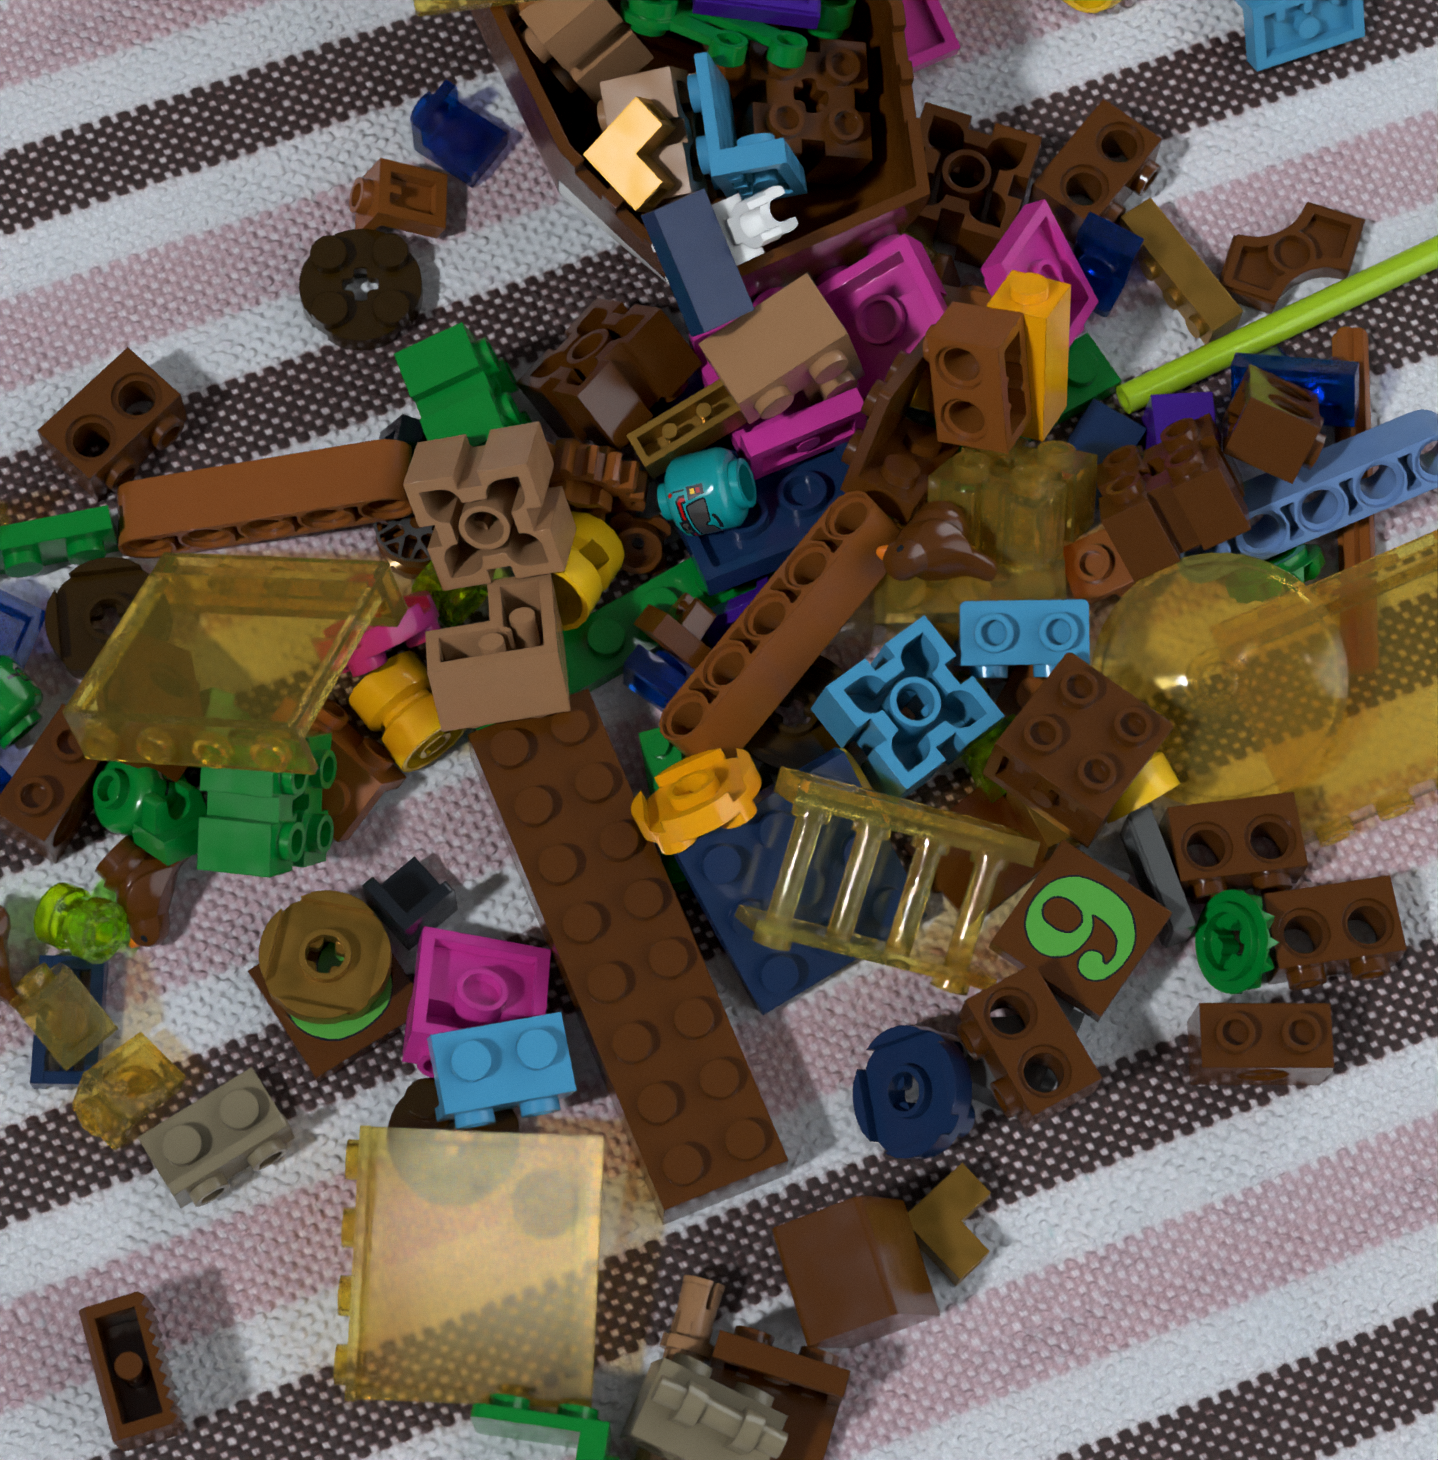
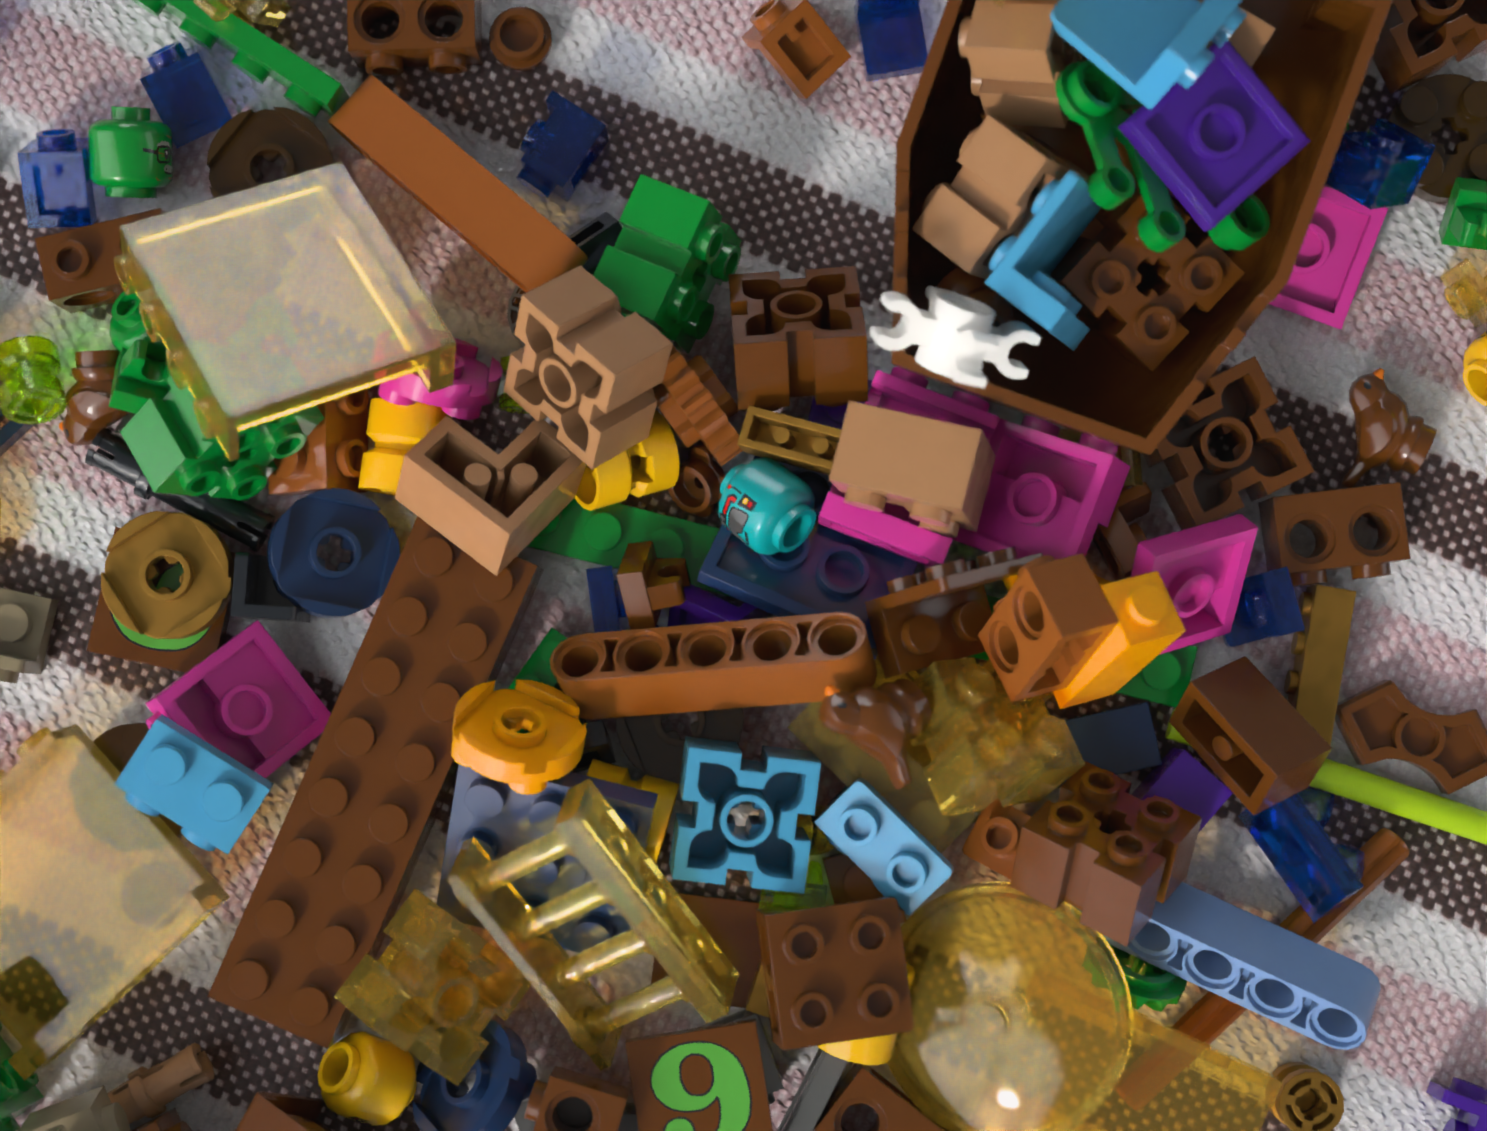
camera: 50 degrees right, 15 degrees up
(200, 372) = (520, 38): none -> reddish brown plate
(261, 901) = (228, 516): none -> black pin
(305, 407) = (560, 149): none -> clear blue brick
(355, 255) = (701, 48): dark brown plate -> none
(424, 862) = (303, 575): none -> dark blue plate
(625, 152) = (945, 195): piece -> none
(697, 262) = (899, 343): dark blue tile -> none
(819, 1039) = (434, 988): none -> clear yellow brick
(836, 1163) = (367, 1079): none -> yellow head
(1057, 82) = (1385, 430): none -> reddish brown animal
(1182, 343) = (1249, 735): none -> reddish brown brick
(1273, 425) = (1241, 873): reddish brown brick -> none

